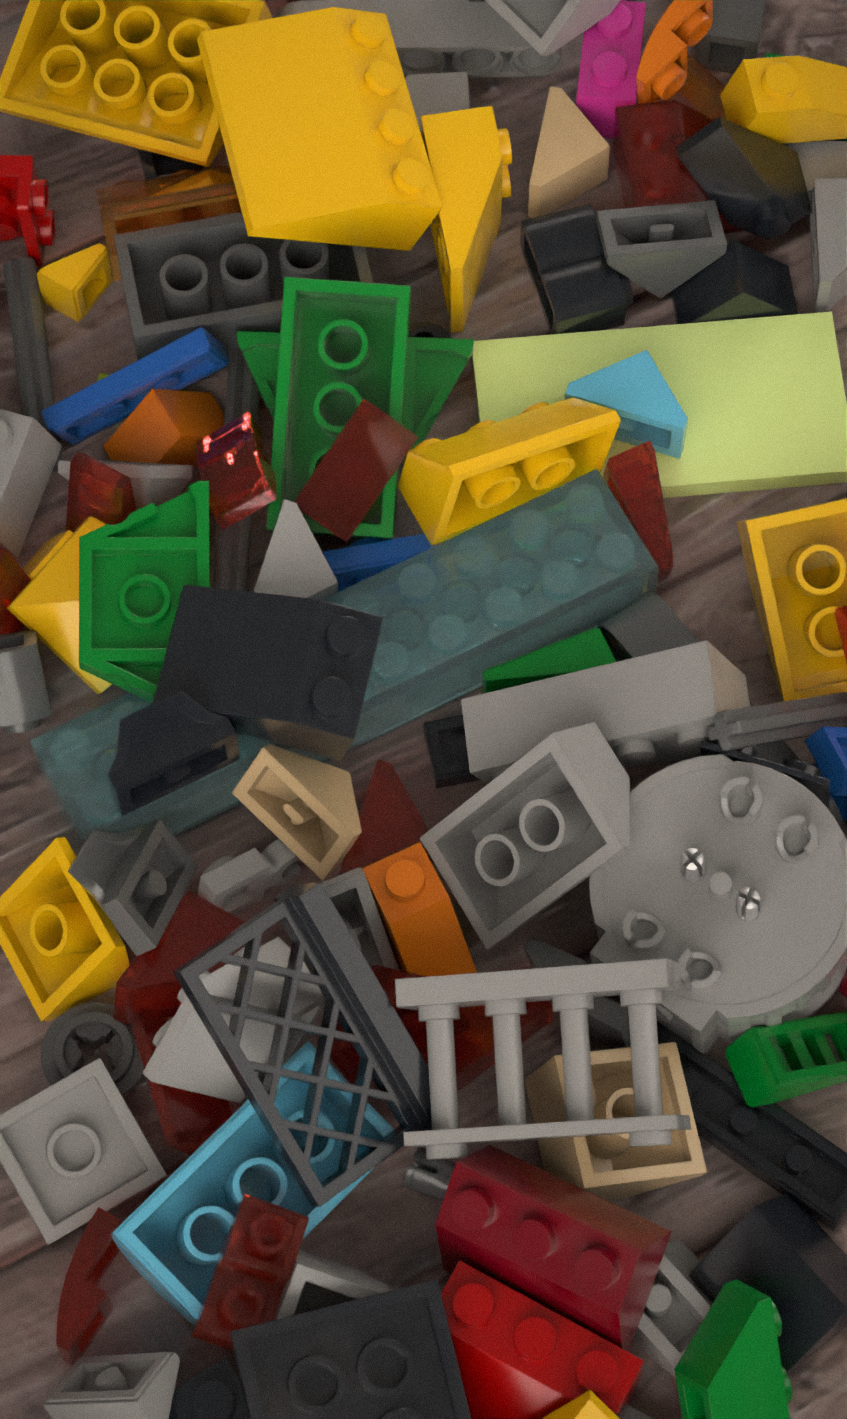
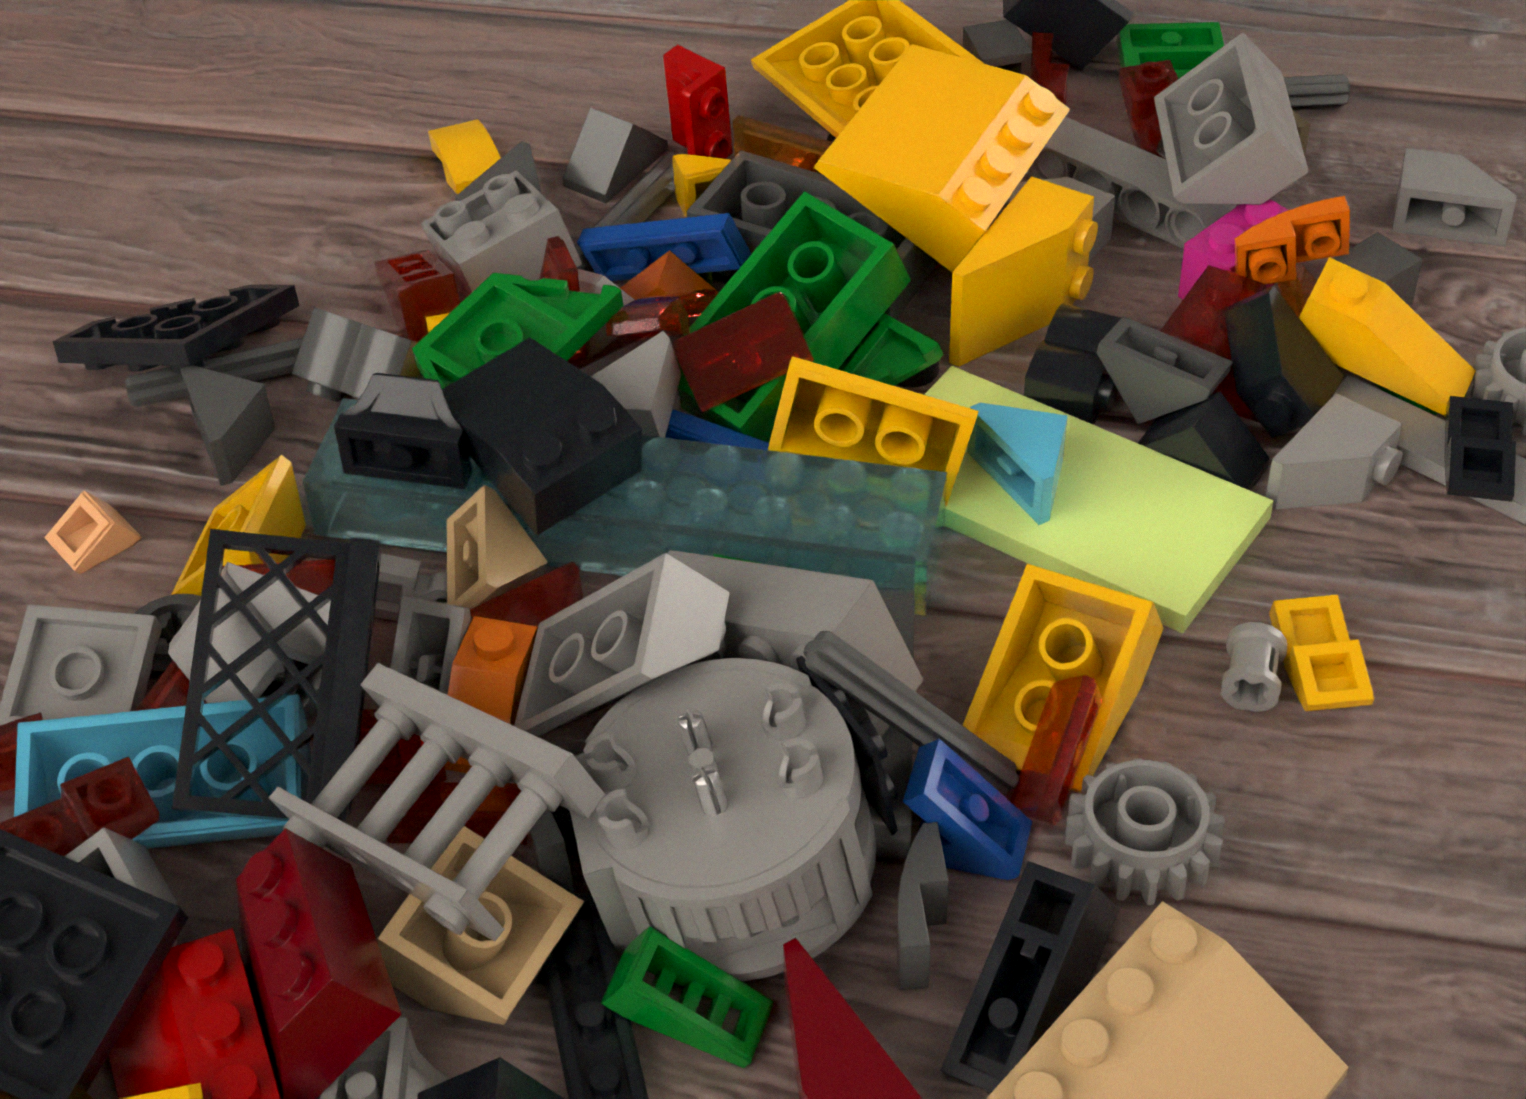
camera: 40 degrees right, 20 degrees down
(135, 879) = (307, 508): dark grey slope -> none
(568, 156) = (1142, 287): tan slope -> none
(637, 488) = (971, 517): clear red slope -> none

